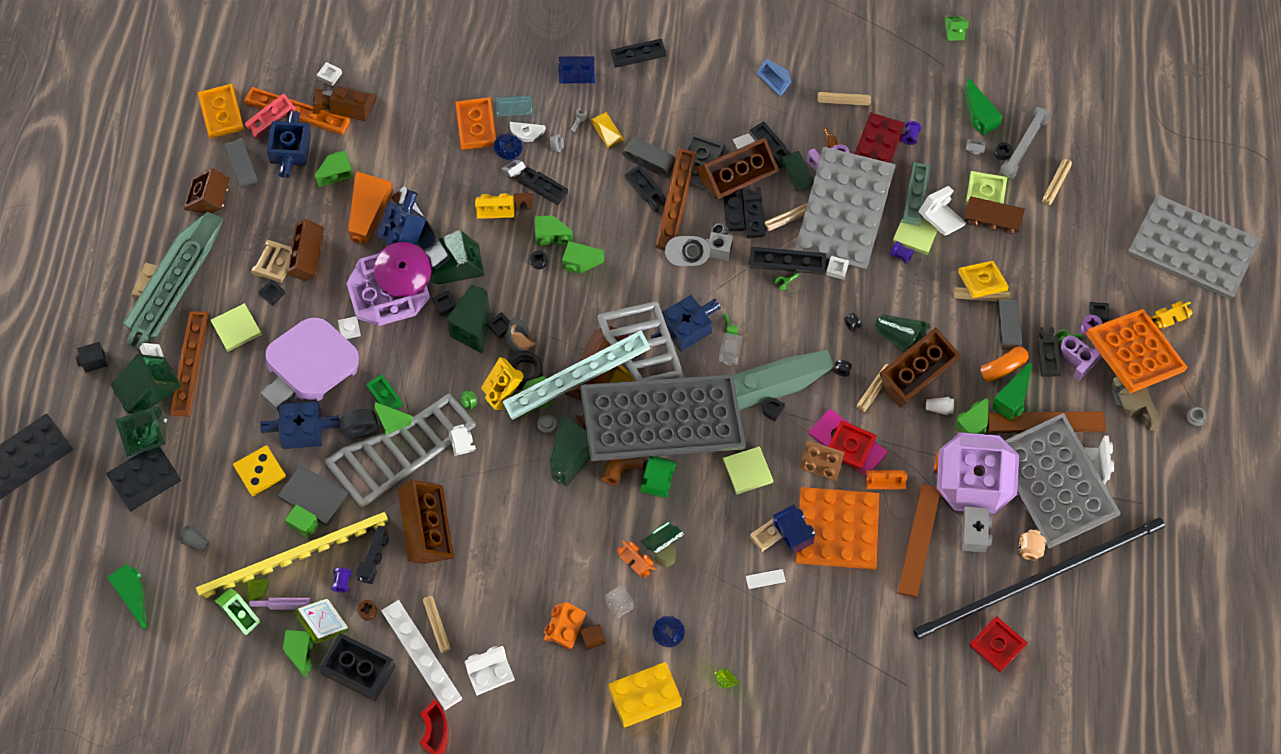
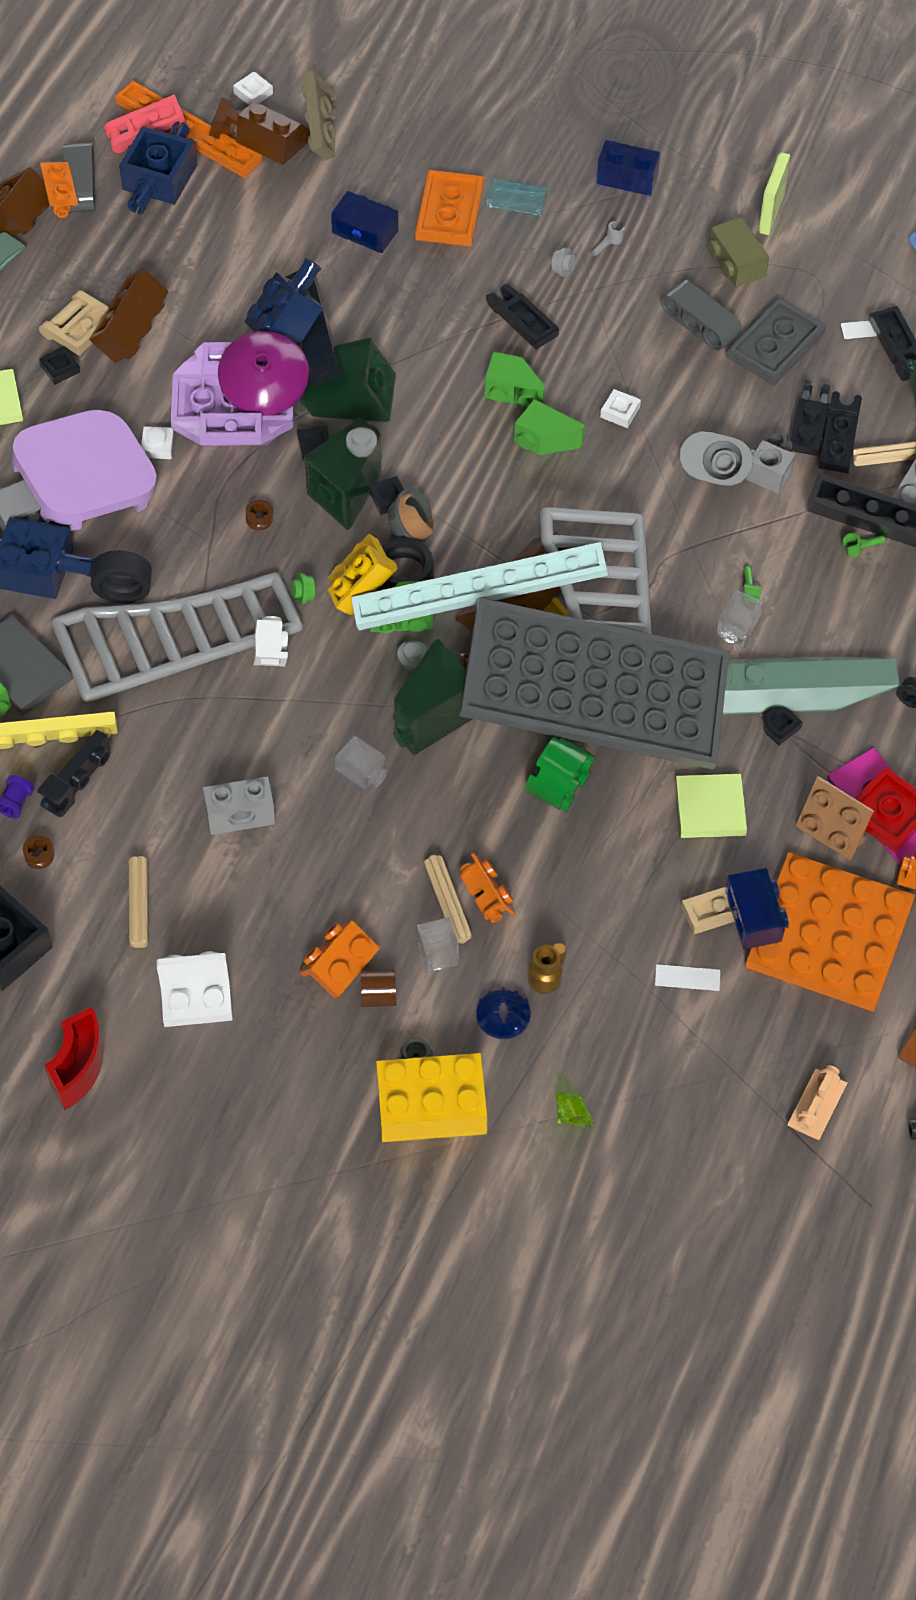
camera: 15 degrees right, 5 degrees down
(220, 111) = (76, 103): light orange tile -> none
(232, 174) = (59, 187): none -> orange hinge
(334, 169) = (212, 218): bright green slope -> none
(368, 205) = (242, 279): orange slope -> none
(372, 69) = (319, 114): none -> dark tan wing
(384, 393) = (176, 548): green plate -> none
(392, 419) = (174, 582): bright green slope -> none
(421, 360) = (259, 523): none -> reddish brown bush
(421, 655) = (99, 942): white plate -> none
(425, 522) = (173, 746): reddish brown slope -> none
(428, 147) = (365, 222): none -> clear blue brick
(476, 548) = (239, 805): none -> light grey brick
(478, 301) = (361, 441): none -> light grey plate
(495, 206) = (437, 324): yellow brick -> none
(510, 153) = (487, 259): clear blue gear -> none
(514, 168) = (485, 282): light grey plate -> none
(520, 197) = (489, 324): reddish brown tile -> none
(526, 132) = (523, 237): white plate -> none
(538, 265) = (477, 425): black bush -> none
(539, 503) = (361, 765): none -> clear brick
(607, 130) = (648, 264): yellow slope -> none
(614, 469) = (505, 742): dark orange cylinder -> none
(614, 569) = (447, 897): none -> tan axle
(620, 231) = (620, 408): none -> white plate
(627, 665) = (413, 1046): none -> dark grey plate
(638, 53) = (730, 167): black plate -> none
(645, 187) = (681, 356): black hinge -> none
(659, 109) = (738, 252): none -> olive brick
(662, 537) = (538, 867): clear green piece -> none
(666, 556) = (536, 896): olive brick -> none
(670, 66) = (774, 193): none -> yellowish green tile
(676, 197) = (724, 378): dark orange tile -> none
(685, 598) = (546, 968): none -> pearl gold piece
(688, 321) = (685, 562): dark blue brick -> none
(738, 168) = (834, 360): reddish brown slope -> none
(860, 633) = (818, 1102): none -> light nougat hinge

